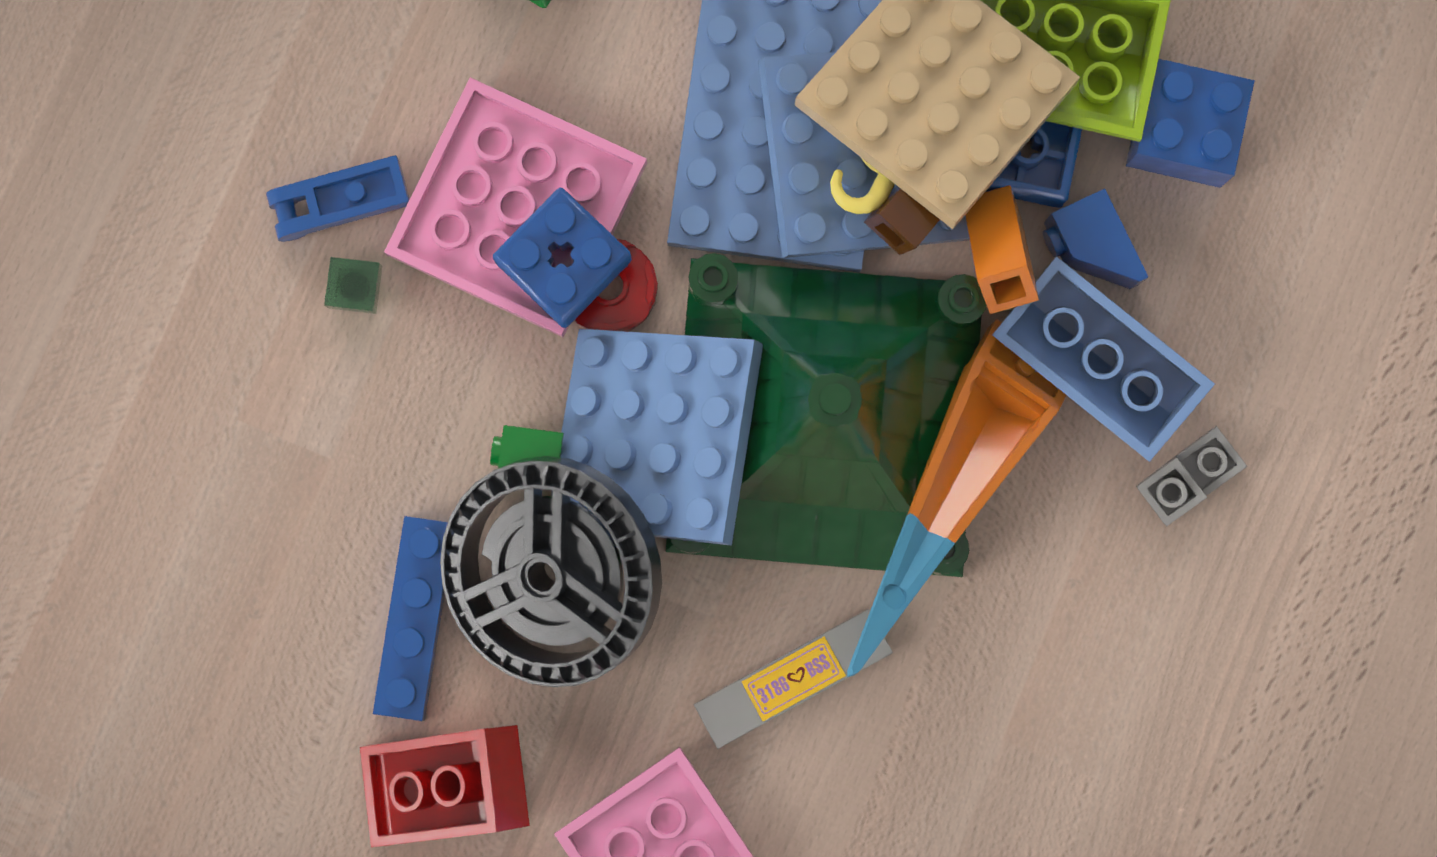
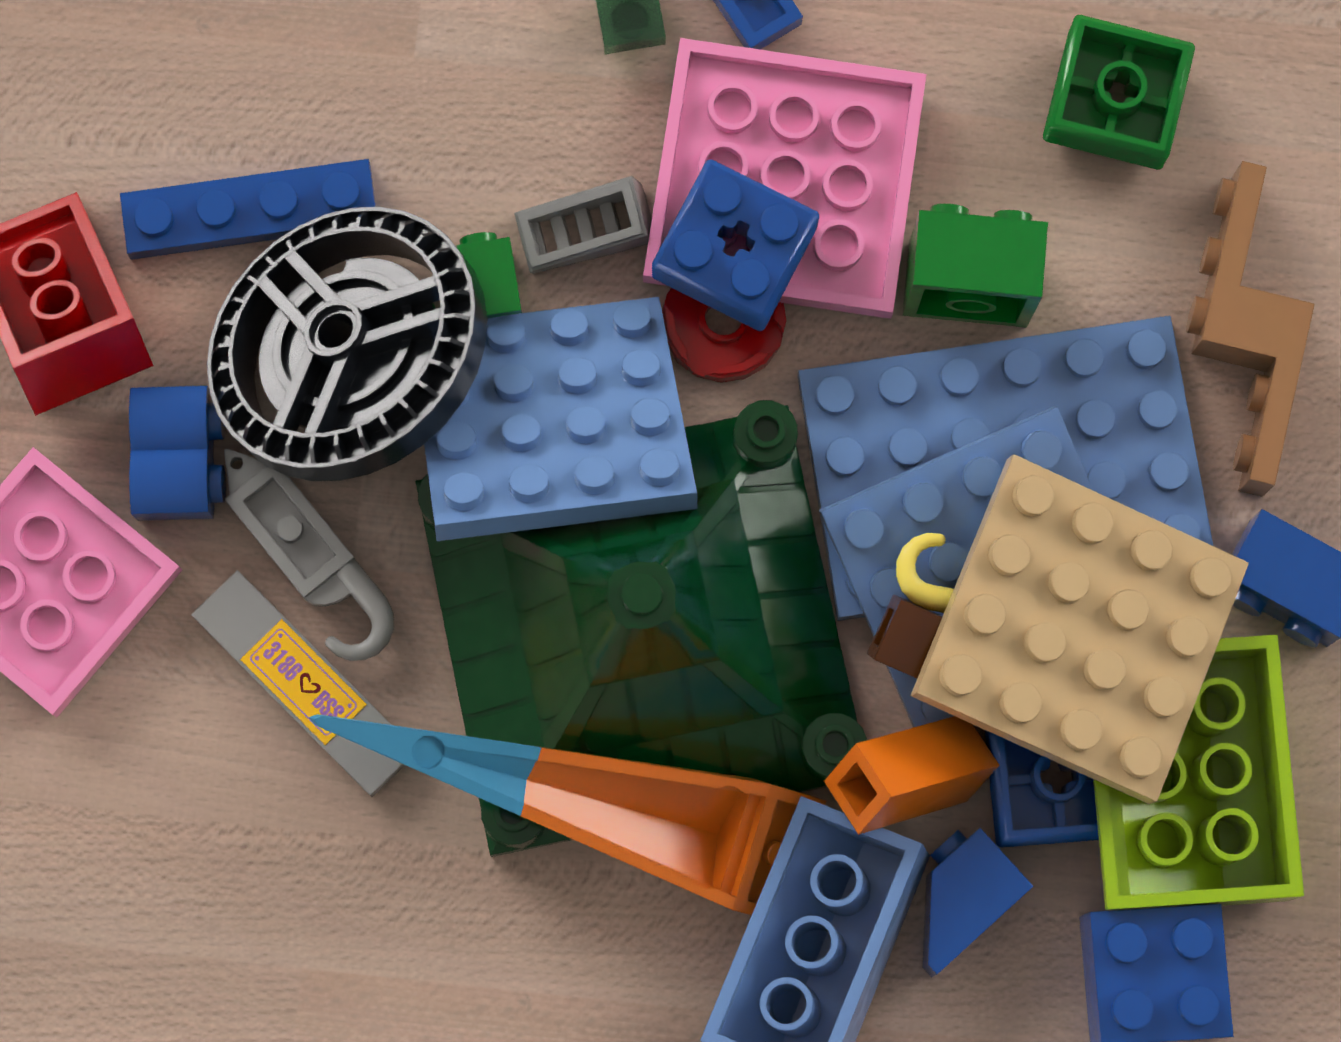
camera: 70 degrees right, 5 degrees down
(504, 410) = (591, 247): none -> light grey slope
(590, 727) = (173, 453): none -> blue brick
(633, 85) = (975, 266): none -> green brick
(694, 648) = (306, 549): none -> light grey plate

